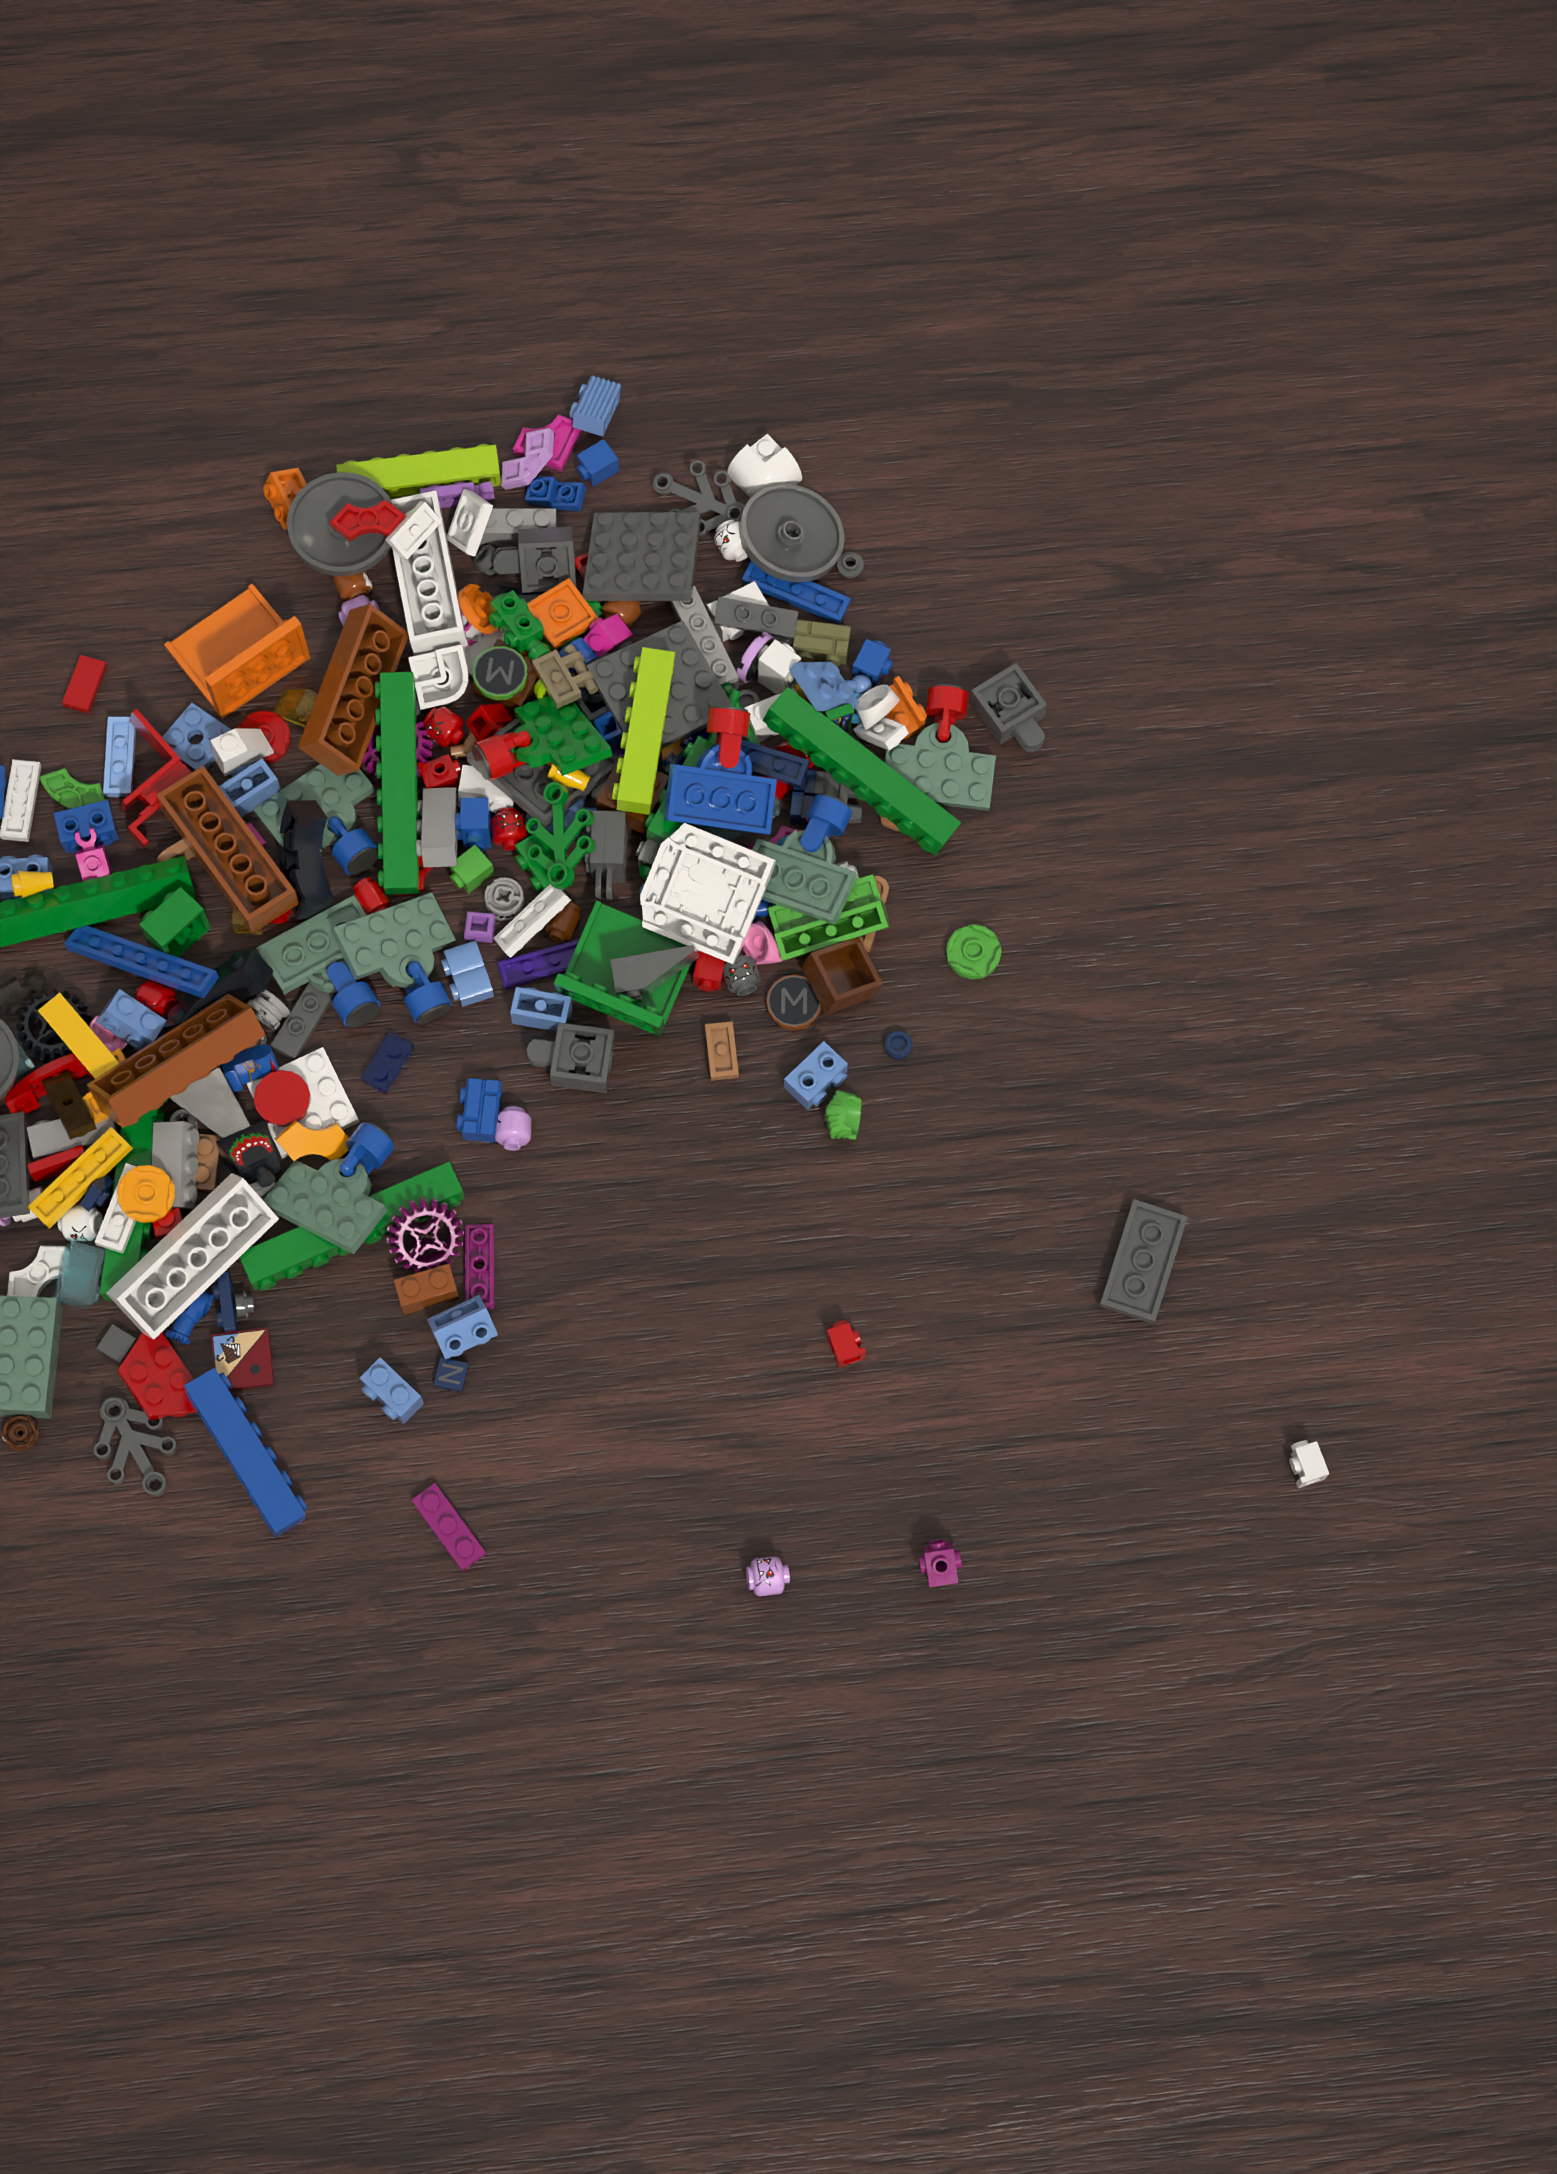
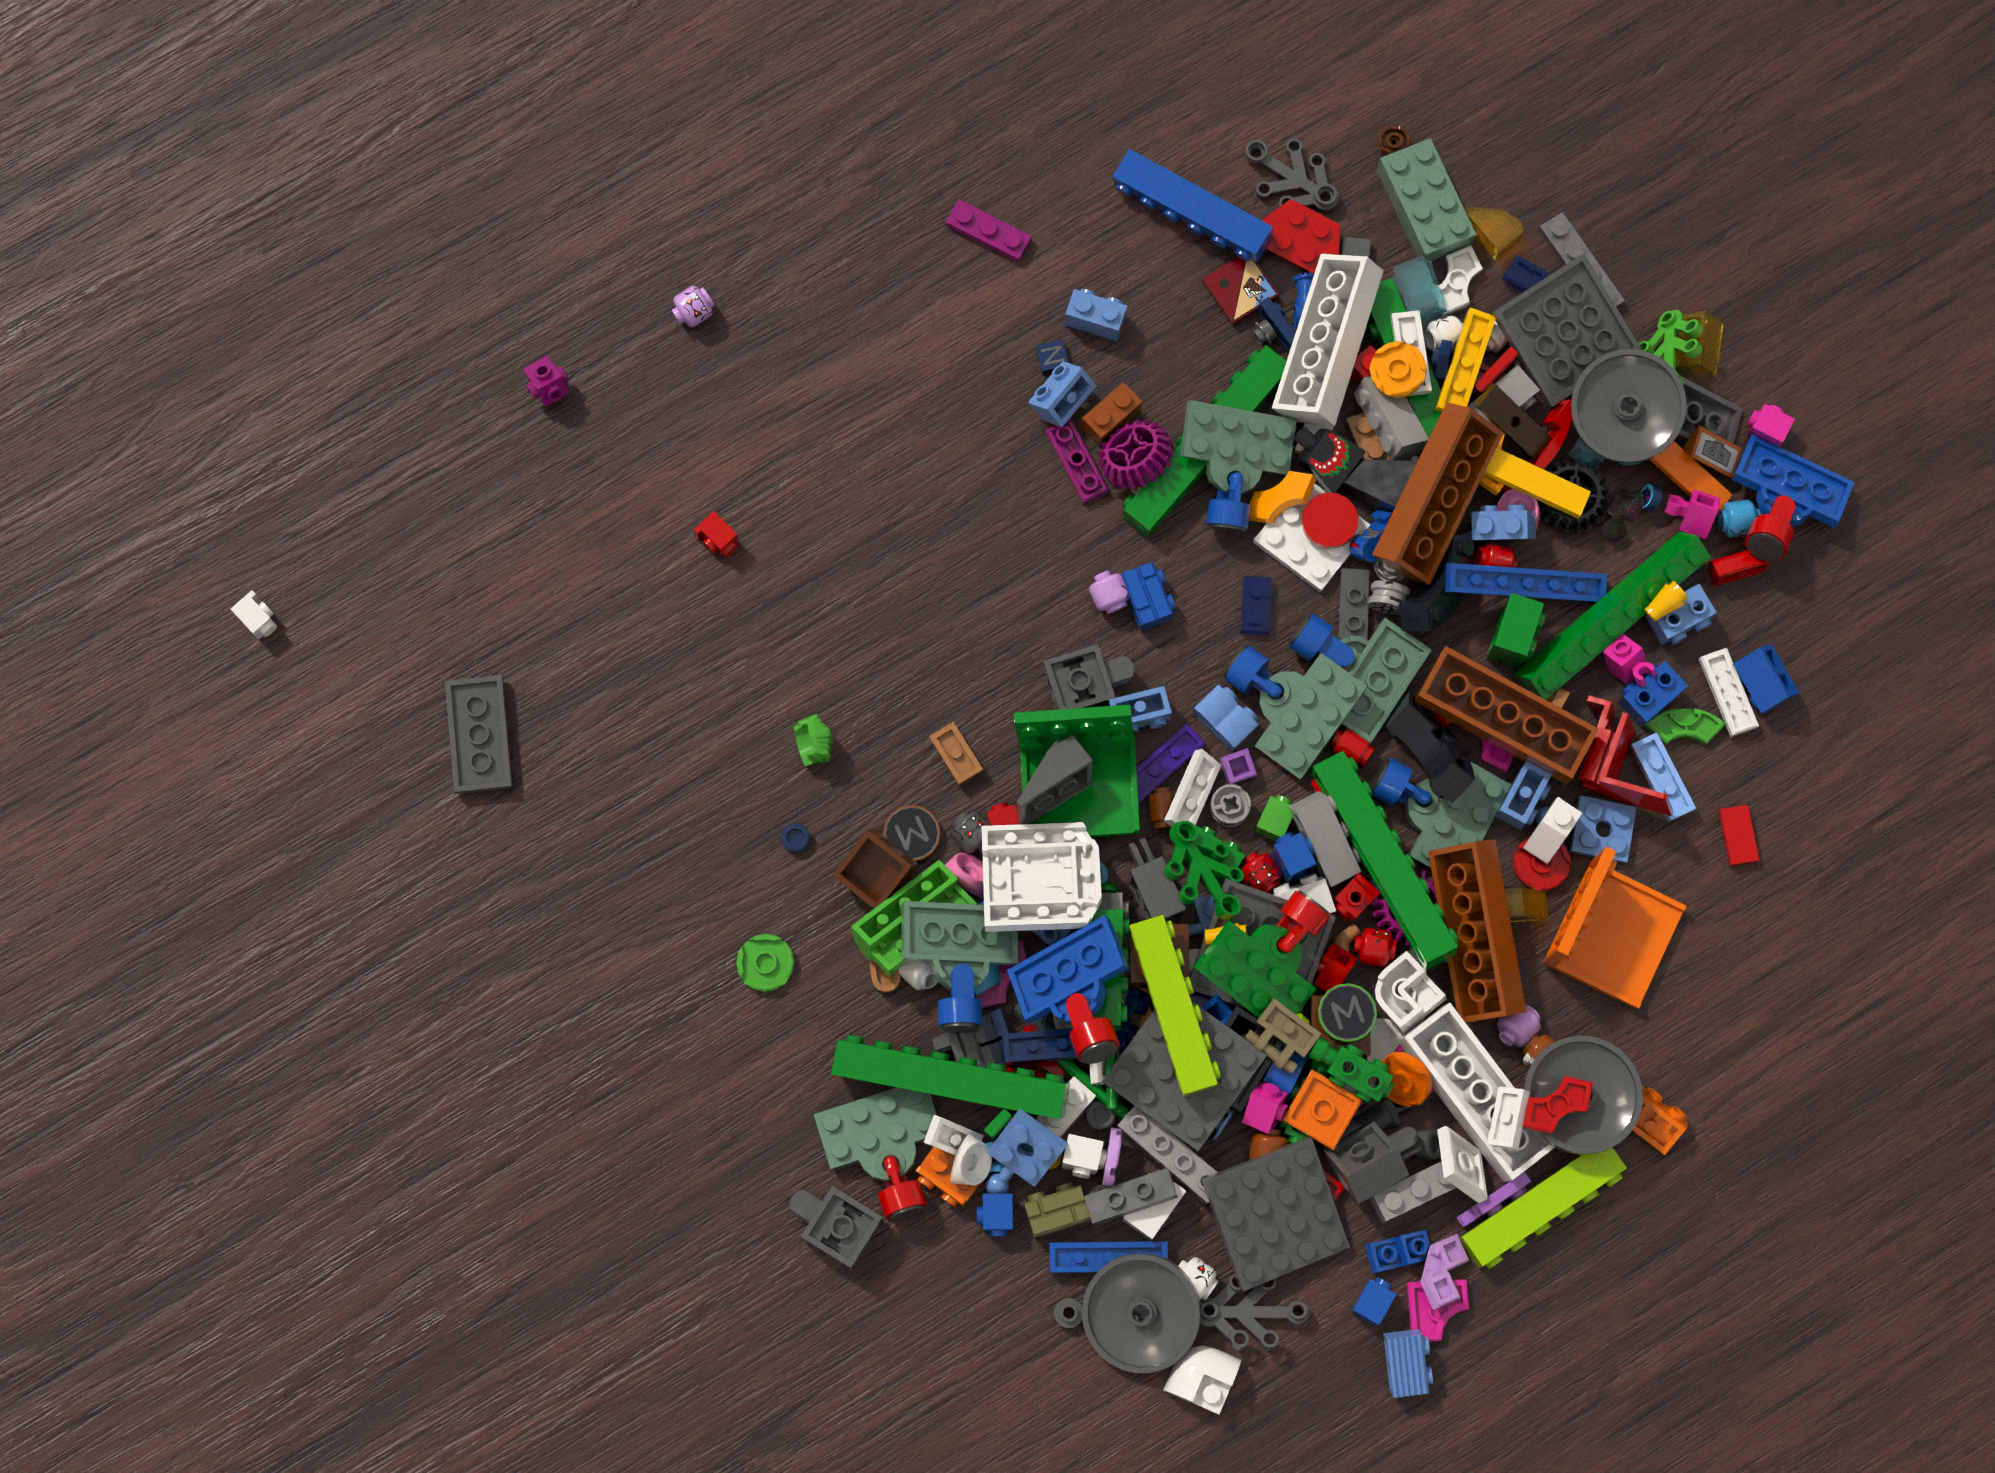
camera: 155 degrees right, 5 degrees up
(816, 1076) = (856, 768): medium blue brick -> none

